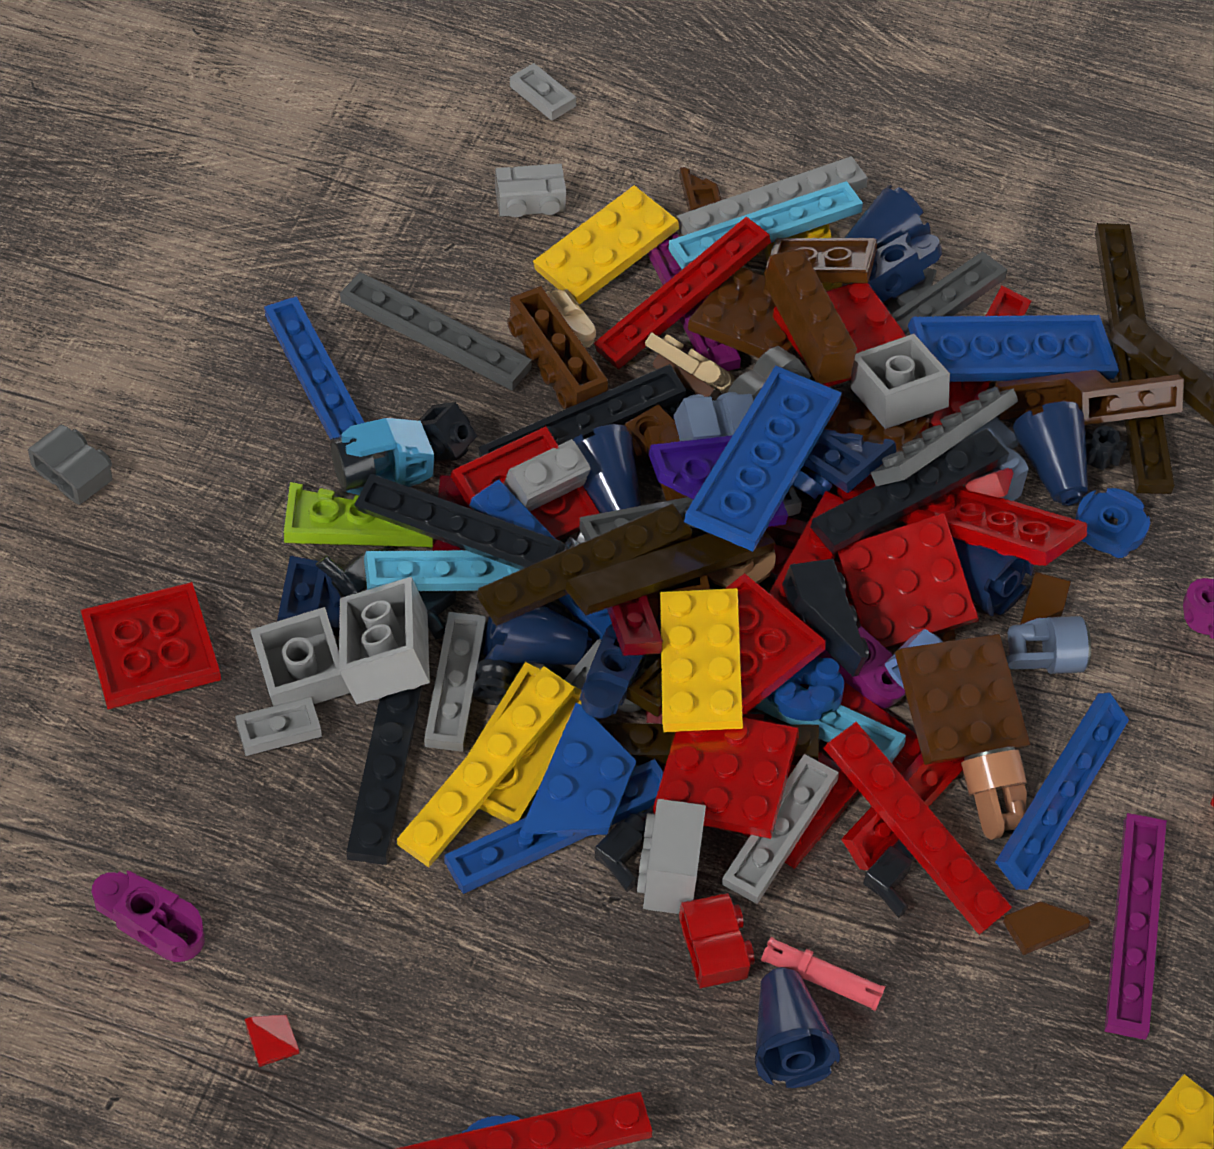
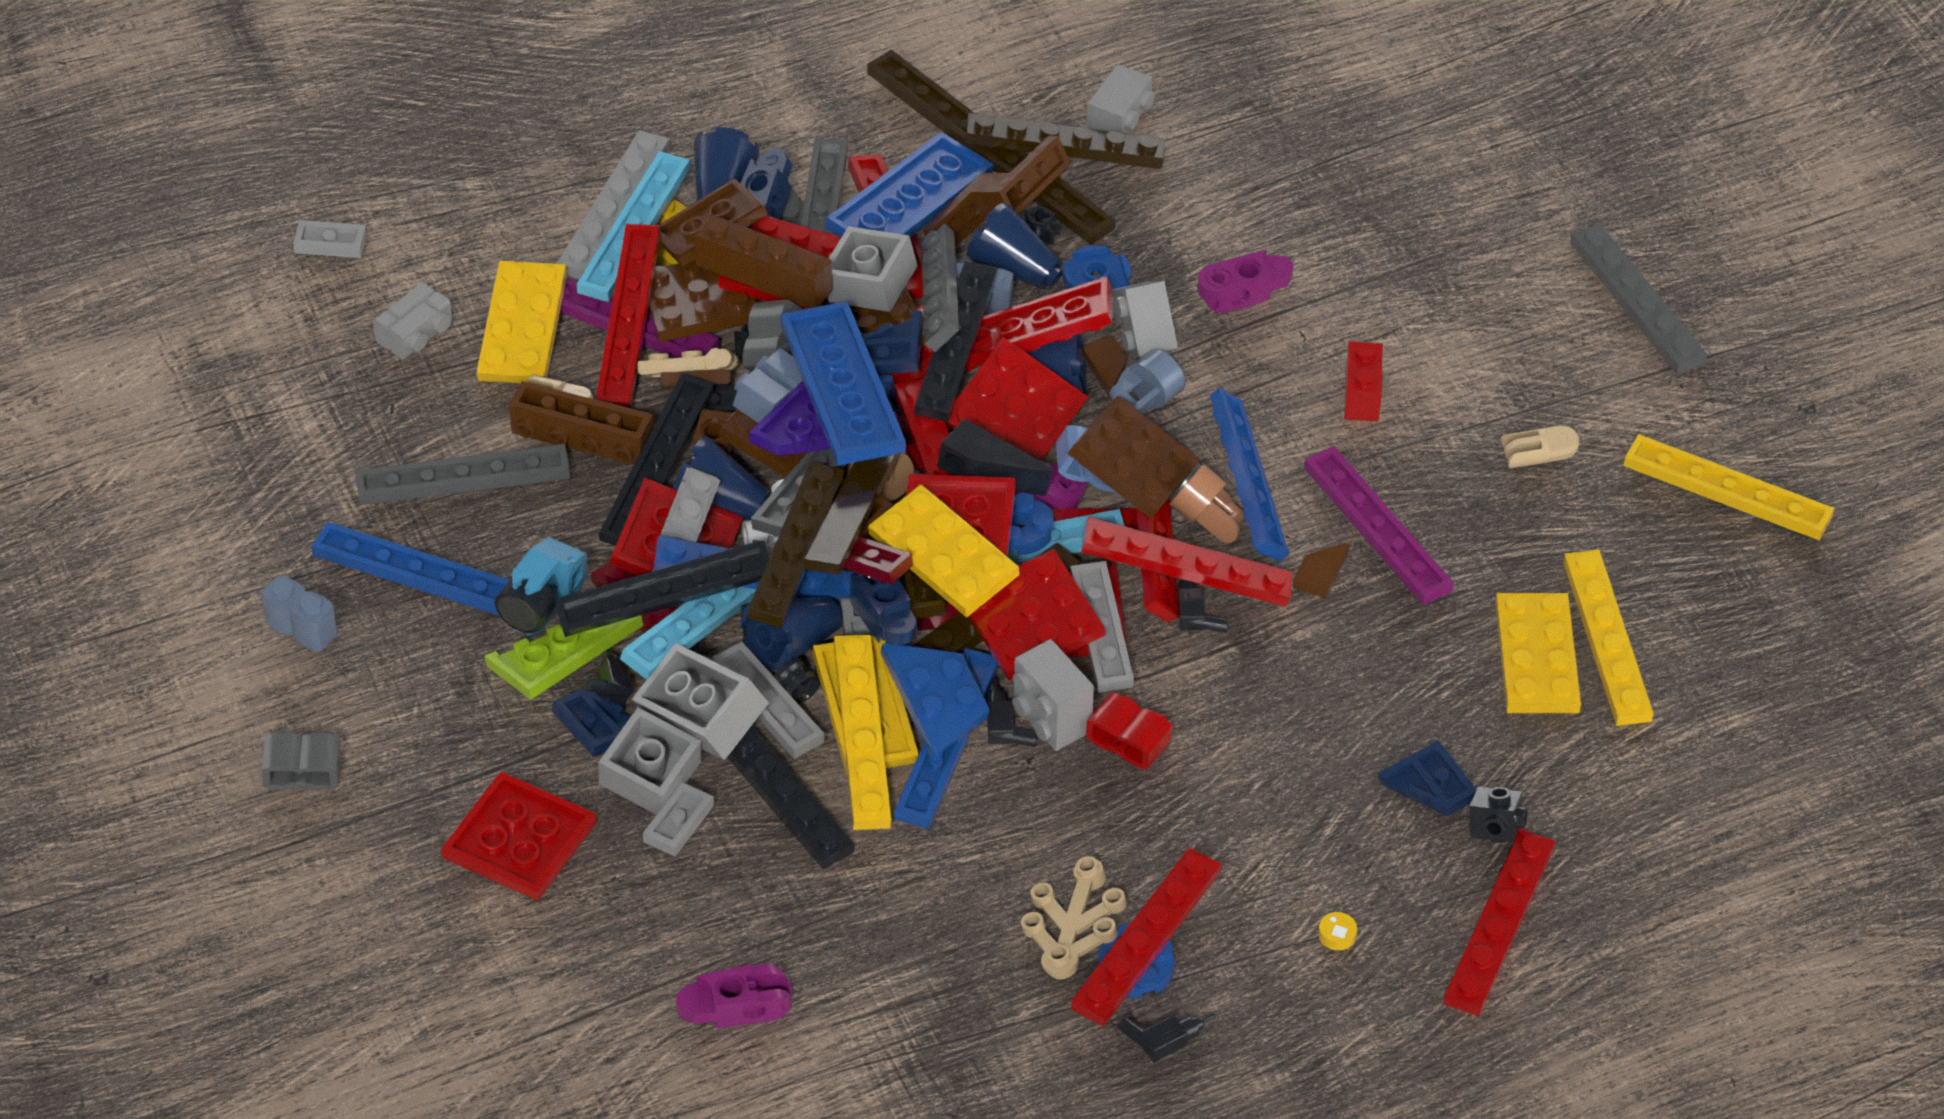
camera: 40 degrees left, 5 degrees down
(197, 350) = (299, 613): none -> sand blue brick
(271, 1038) = (906, 1009): red slope -> none
(448, 431) = (566, 528): black brick -> none
(485, 1076) = (1062, 957): none -> tan plant
(697, 191) = (545, 239): reddish brown tile -> none
(792, 1033) = (1240, 743): dark blue cone -> none
(823, 973) = (1206, 702): coral pin -> none
(994, 484) = (1003, 298): red slope -> none
(1107, 584) = (1145, 316): none -> light grey brick

